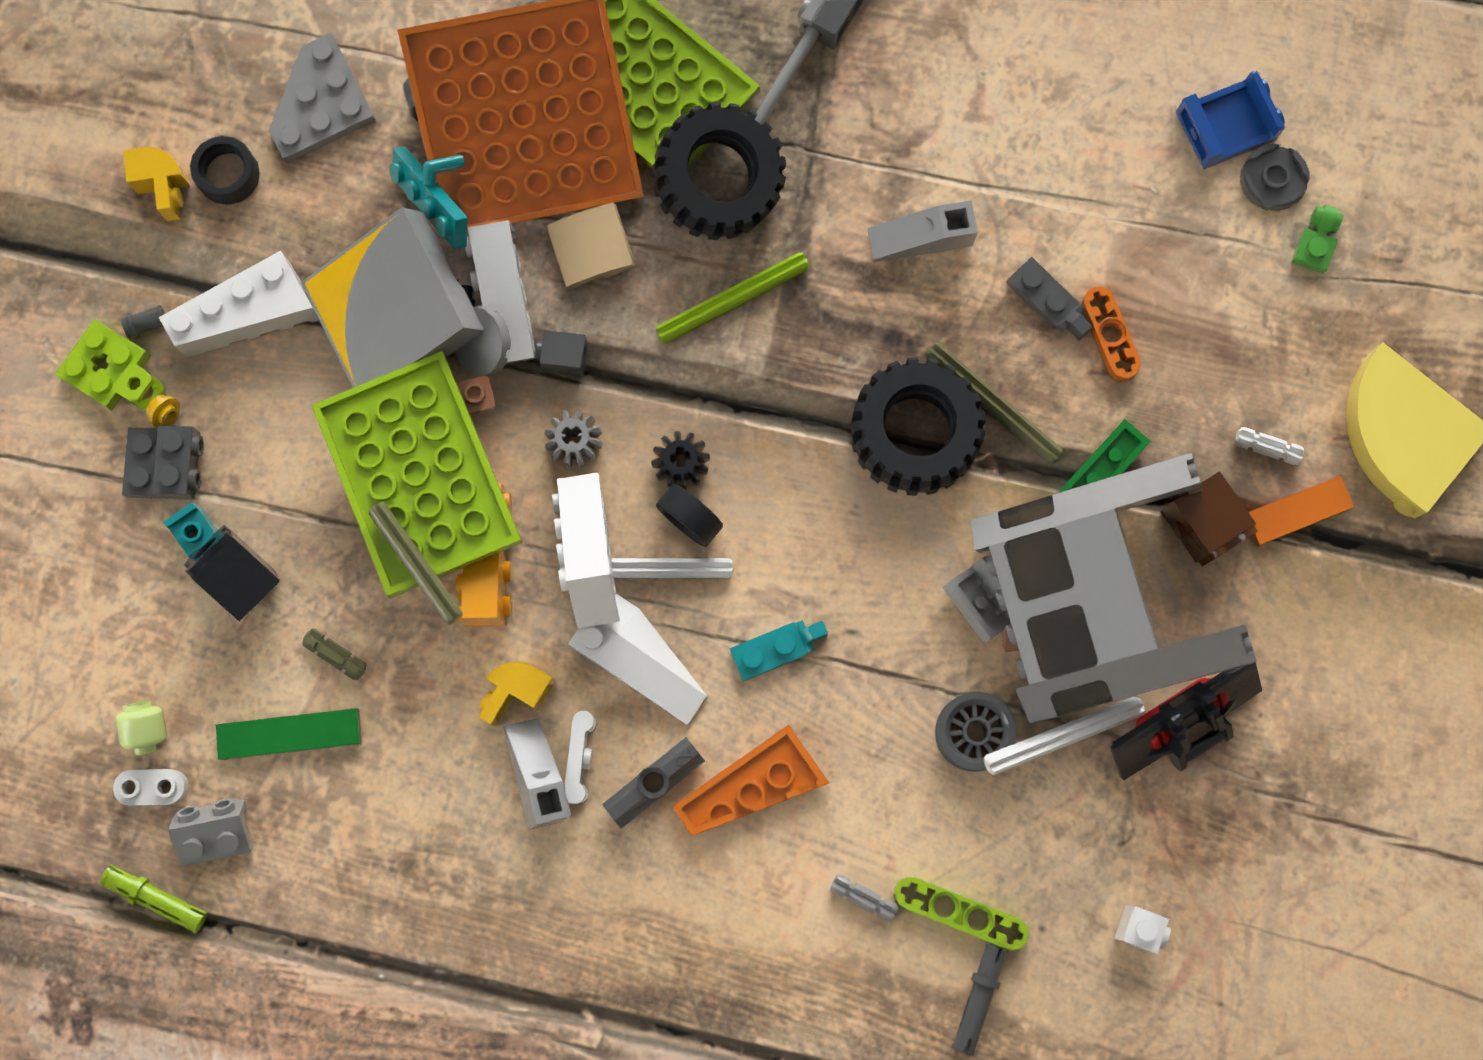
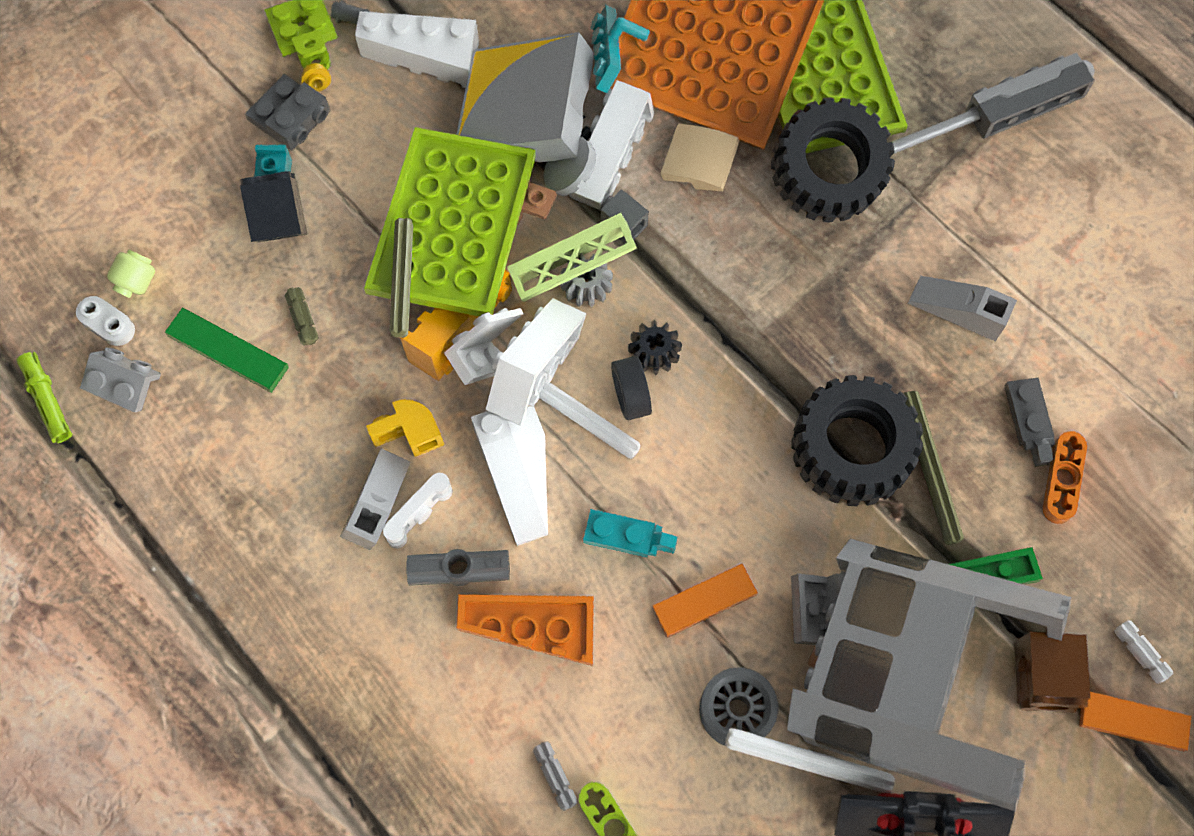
camera: 35 degrees right, 10 degrees down
(528, 580) = (473, 349): none -> white bracket
(538, 424) = (570, 250): none -> yellowish green fence
(732, 297) = (780, 260): lime axle -> none
(883, 659) = (704, 600): none -> orange tile

